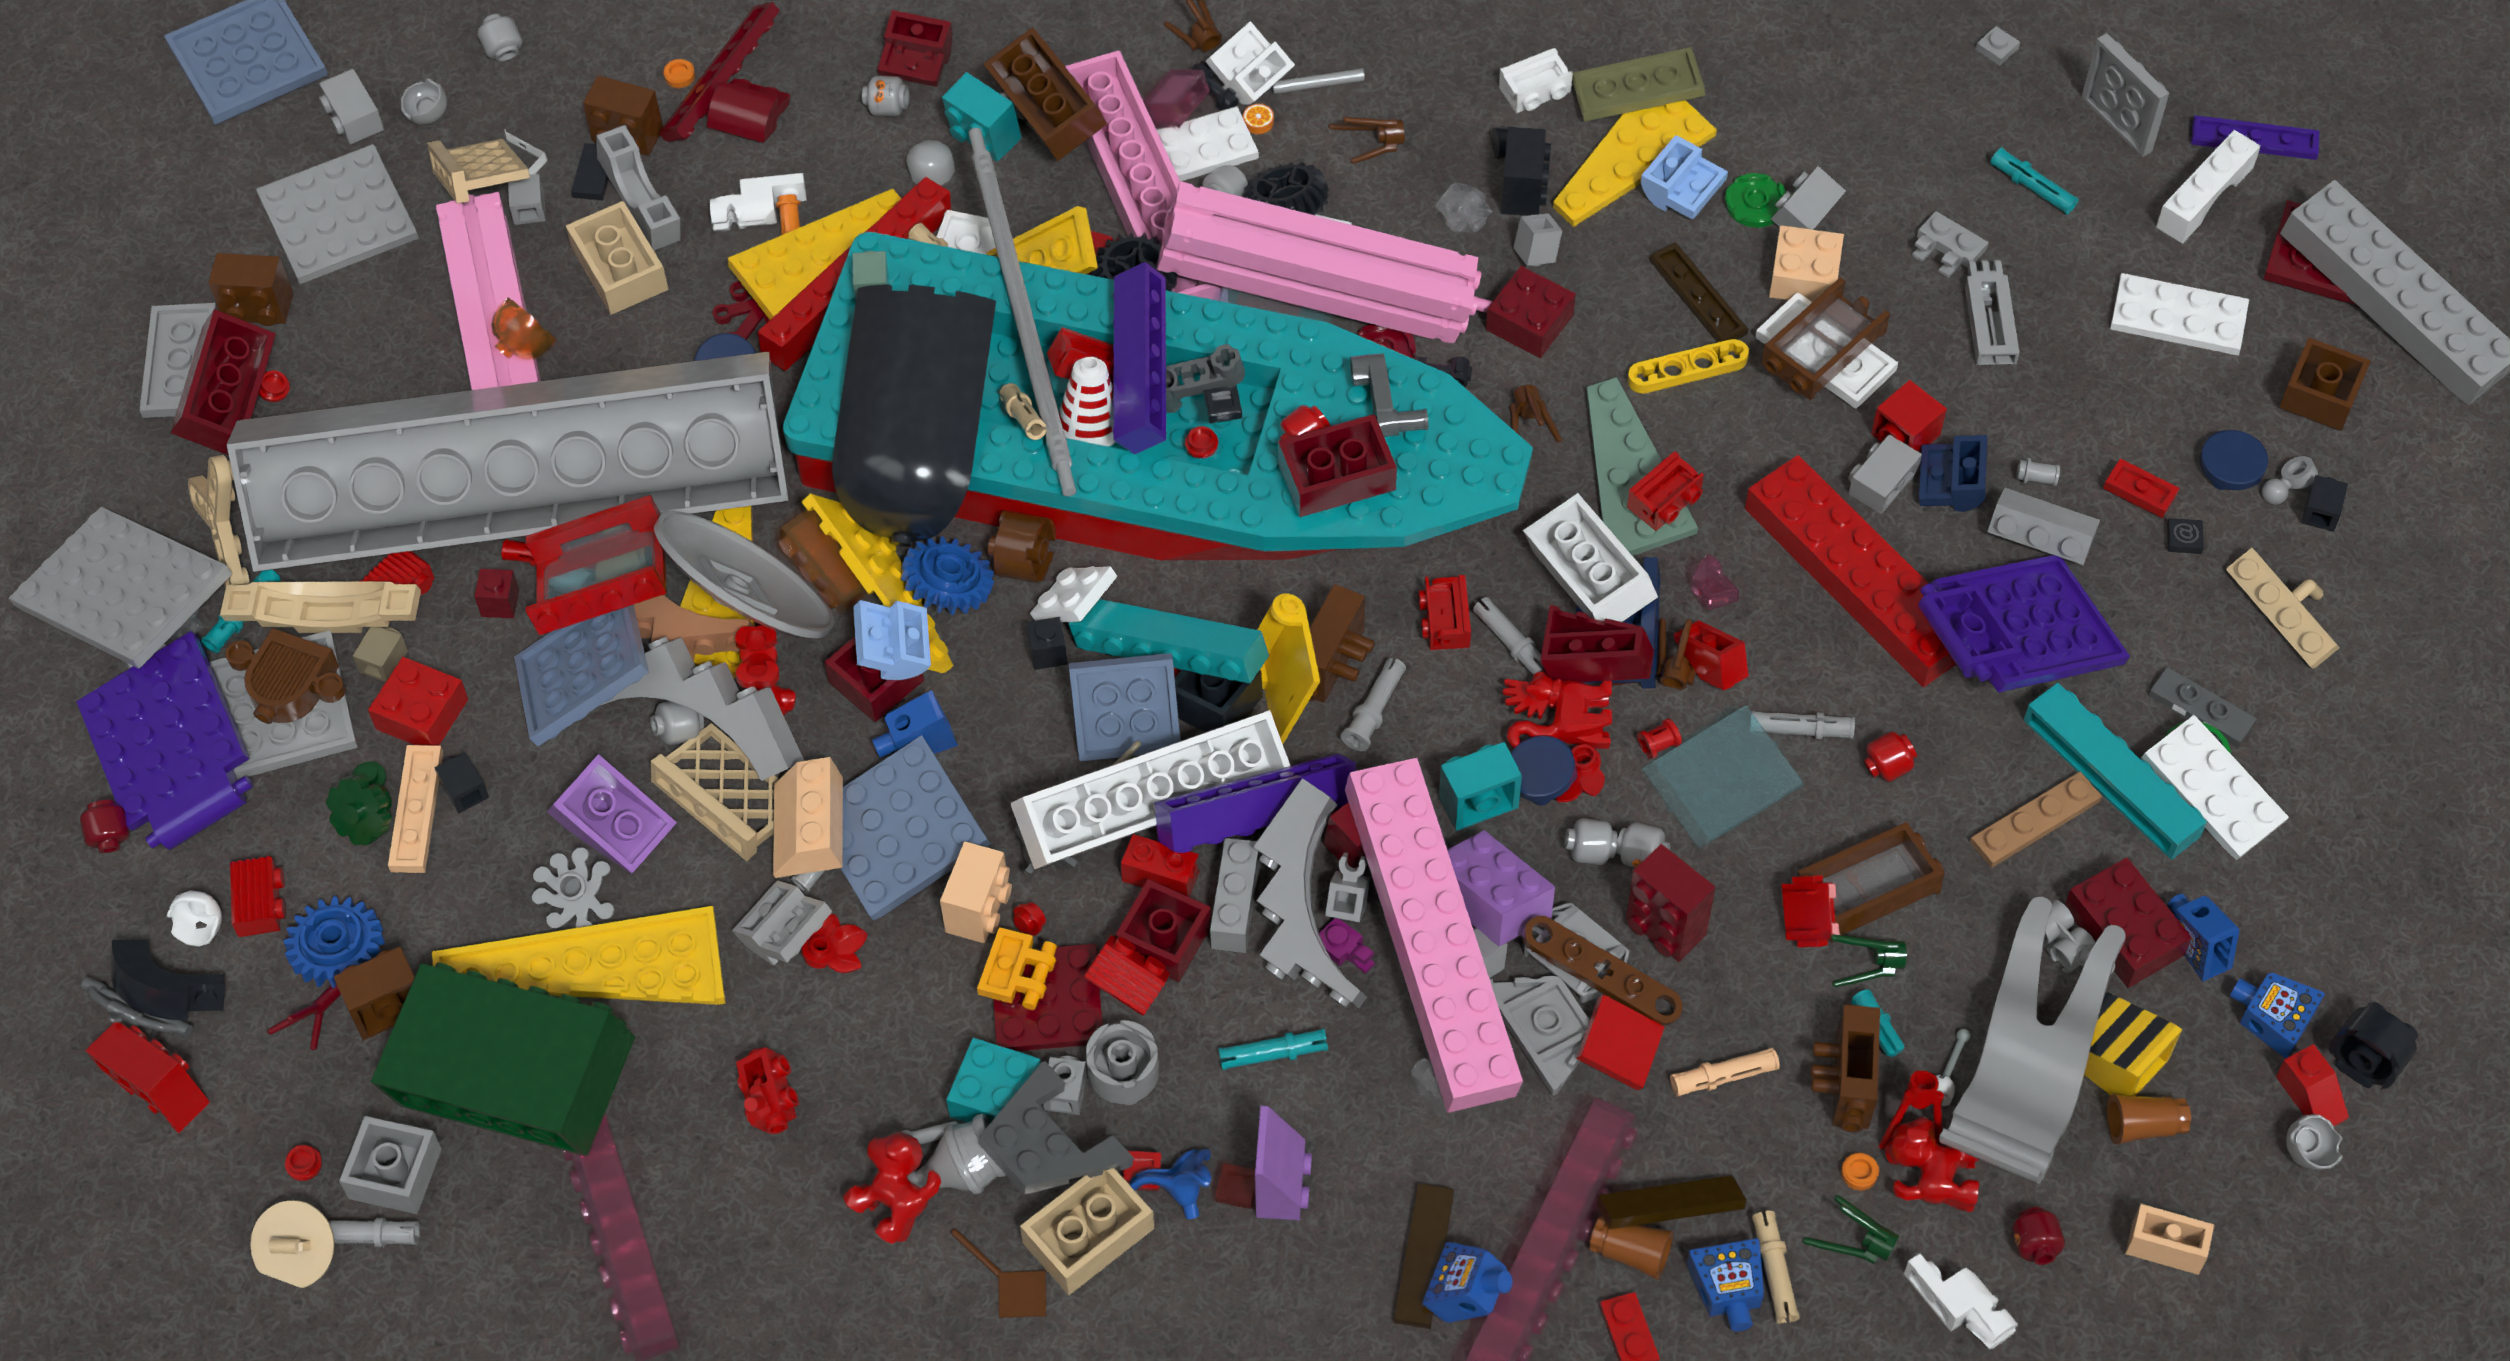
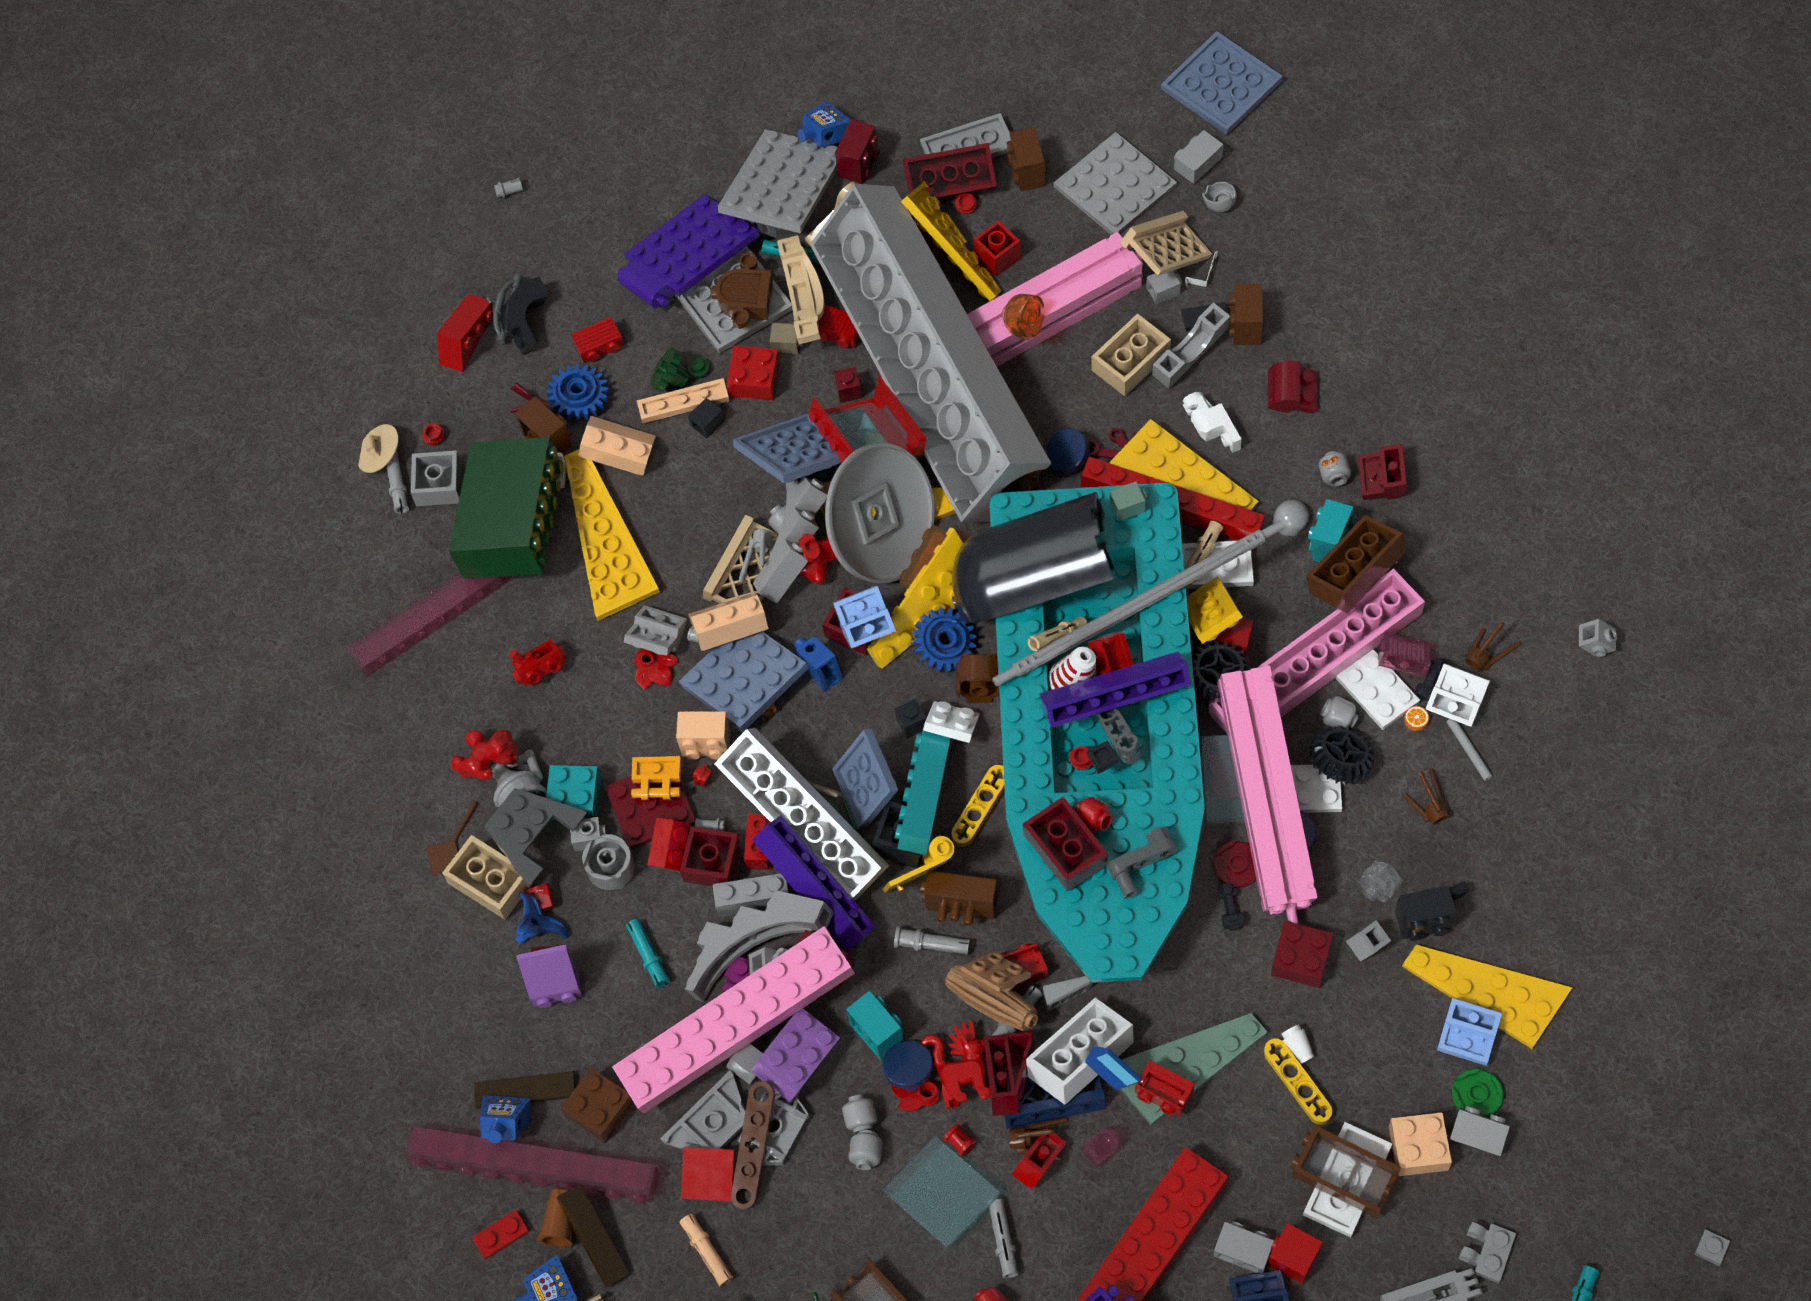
camera: 80 degrees right, 5 degrees up
(54, 512) = (823, 125): none -> blue torso
(104, 826) = (620, 242): dark red head -> none
(123, 482) = (857, 151): none -> dark red brick
(188, 910) = (574, 315): white hair -> none
(315, 403) = (947, 236): none -> yellow wing
(372, 362) = (997, 248): none -> red head
(455, 905) = (616, 445): none -> light nougat slope
(500, 37) = (1292, 219): light grey head -> none
(573, 889) = (647, 506): light grey animal -> none
(612, 815) = (707, 508): medium lavender slope -> none
(679, 73) = (1309, 336): orange tile -> none
(704, 752) = (762, 543): none -> light grey plant
(721, 69) = (1326, 361): dark red plate -> none
(789, 212) = (1209, 444): orange pin -> none
(1112, 921) = (718, 824): none -> light grey pin
(1204, 599) = (977, 804): none -> yellow beam
(1478, 636) = (988, 988): none -> medium nougat plate
(1482, 1157) = (597, 1105): none -> reddish brown brick
(1497, 578) = (1061, 992): none -> light grey slope
(1531, 406) = (1220, 975): reddish brown plant -> none
(1535, 81) = (1525, 901): white hinge -> none
(1632, 524) = (1111, 1068): none -> blue slope
(1638, 84) = (1552, 976): olive tile -> none
(1639, 349) = (1298, 1043): none -> white cone
(1669, 903) = (809, 1173): dark red brick -> none
(1698, 294) = (1369, 1073): dark brown tile -> none
(1809, 910) = (839, 1275): red piece -> none

